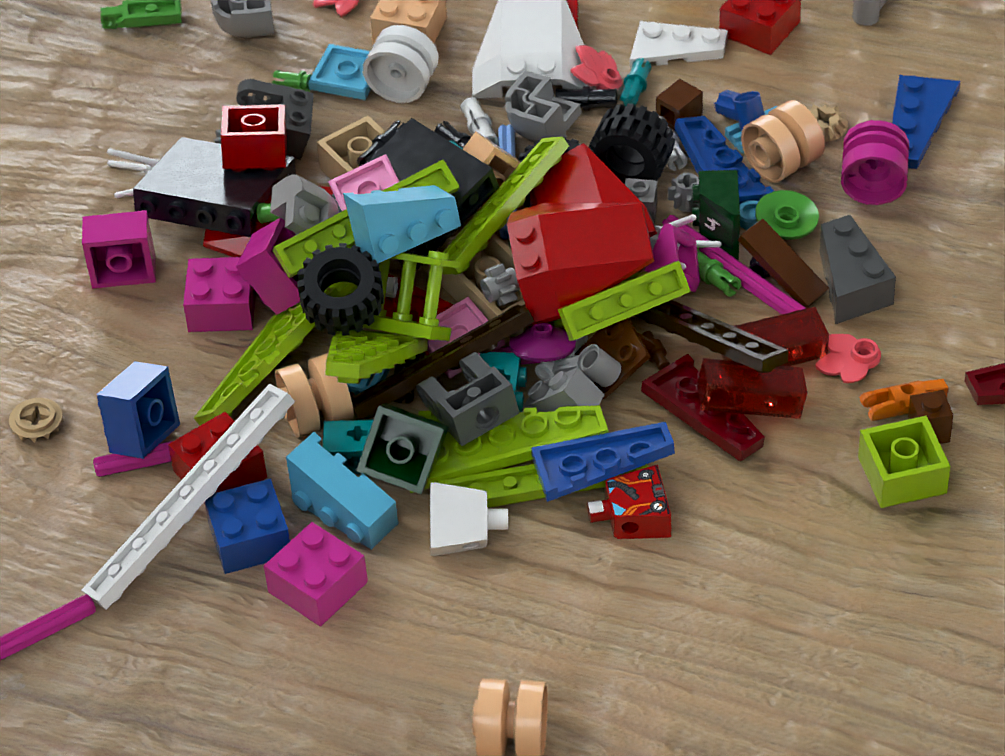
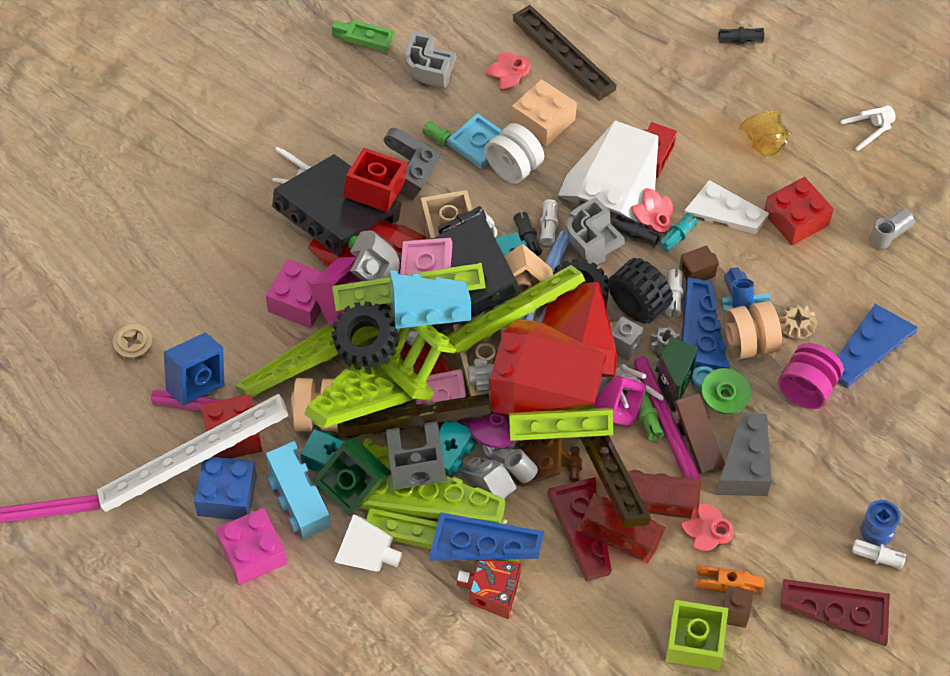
camera: 20 degrees right, 10 degrees up
(119, 249) = (247, 230): dark pink brick -> none

